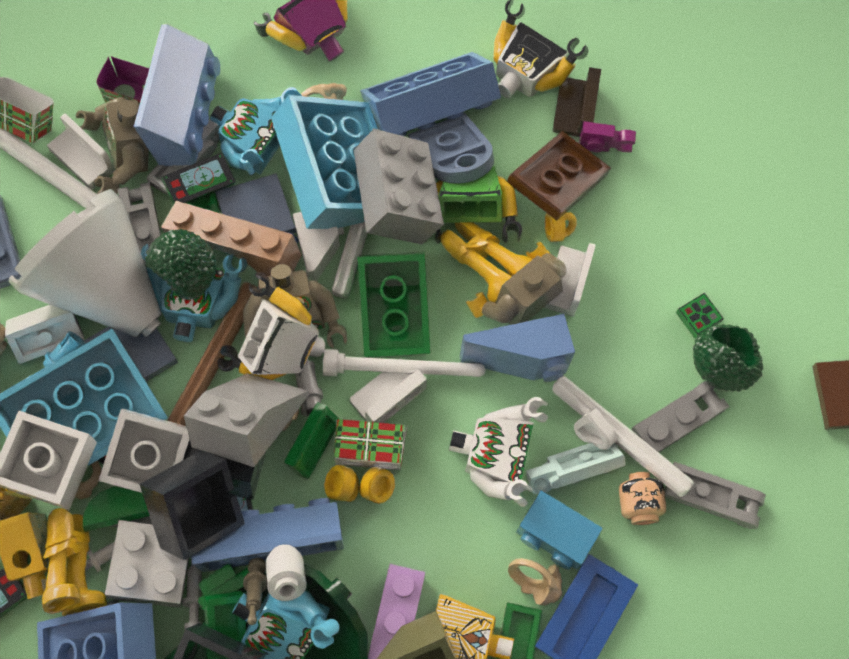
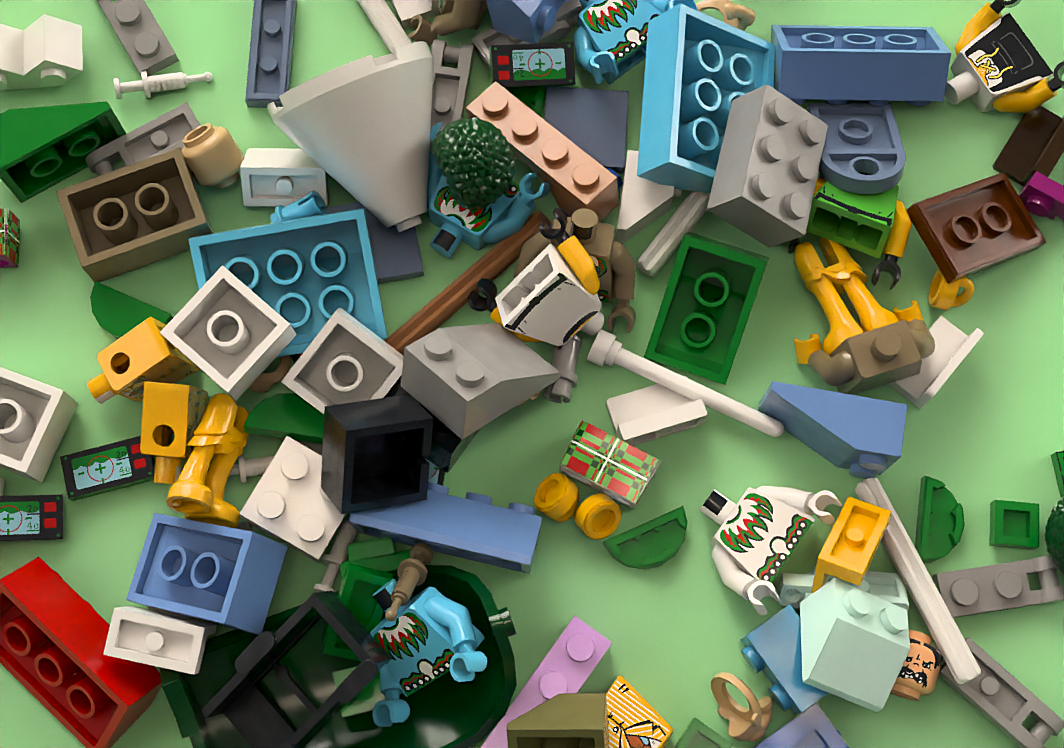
camera: 25 degrees right, 5 degrees up
(285, 573) = (450, 577): white brick -> none
(312, 441) = (542, 432): green tile -> none
(423, 488) = (650, 542): none -> green tile
(566, 428) = (851, 543): none -> yellow panel
(595, 429) = (891, 562): white tile -> none
(596, 499) = (852, 643): none -> light aqua slope
(618, 388) = (938, 521): none -> green tile
(671, 370) = (1014, 524): none -> green tile

